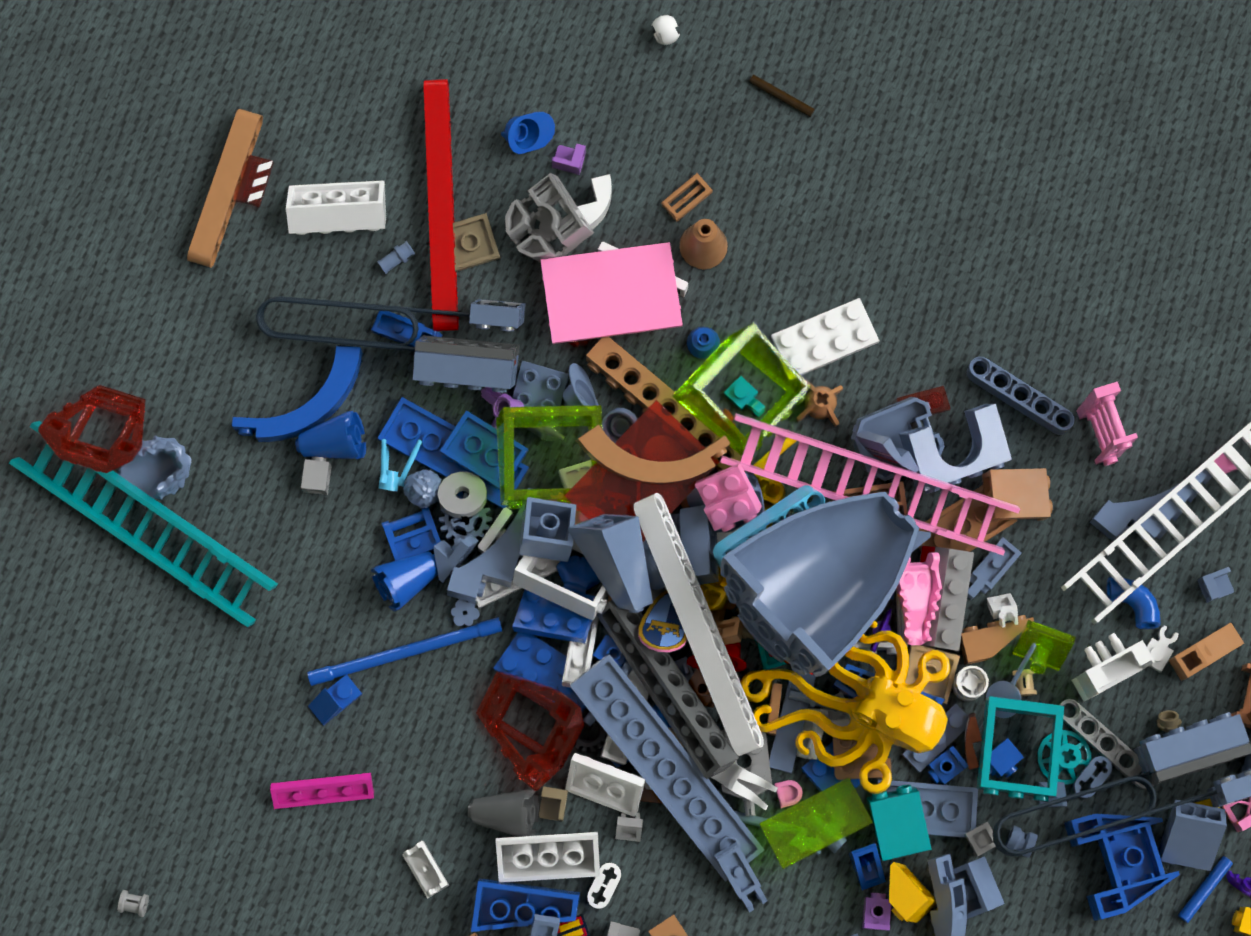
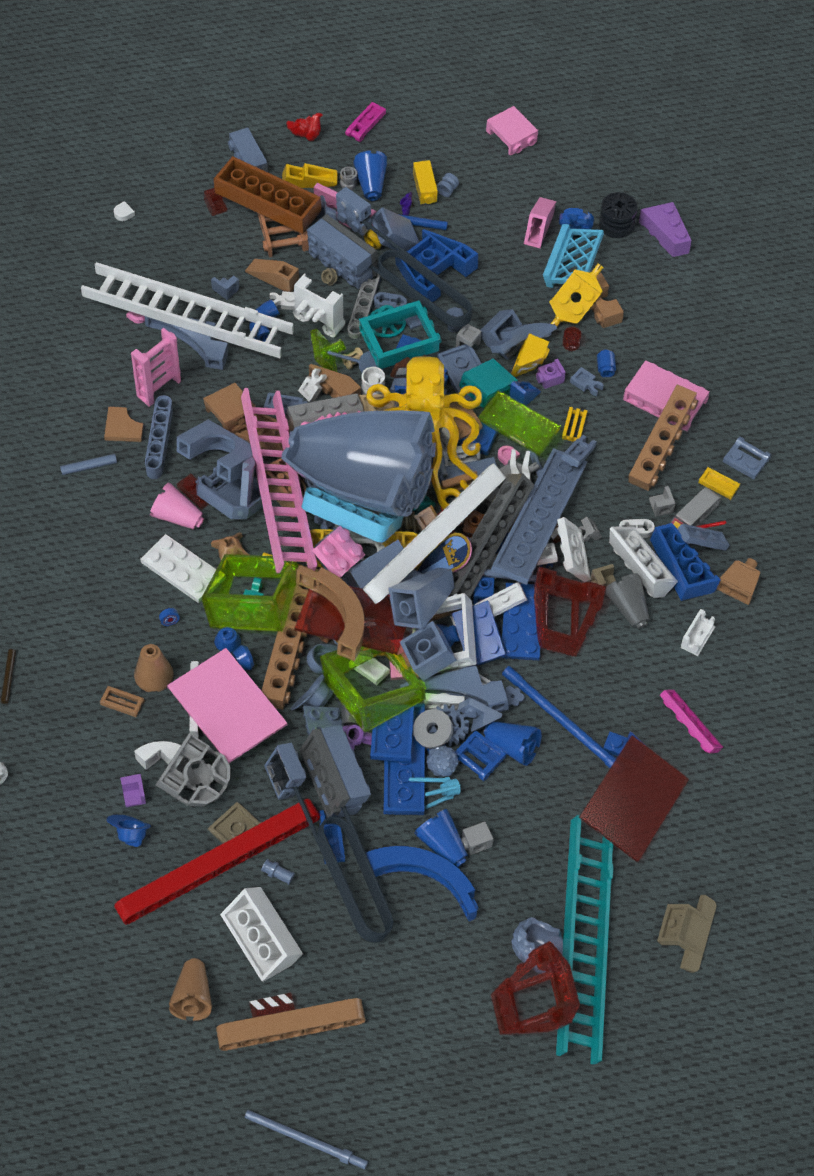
camera: 120 degrees left, 20 degrees down
(67, 173) = (344, 1155): none -> sand blue bar
(92, 637) = (688, 929): none -> dark tan plate
(264, 667) = (634, 798): none -> clear red piece
(312, 109) = (191, 992): none -> medium nougat cone
(667, 343) = (243, 657): none -> blue cone
(764, 292) = (169, 617): none -> blue tile
(806, 916) = (577, 413): none -> yellow tile
(902, 365) = (176, 508): none -> bright pink cone
(1023, 302) = (88, 464): none -> sand blue piece
(1059, 363) = (121, 427): none -> medium nougat tile

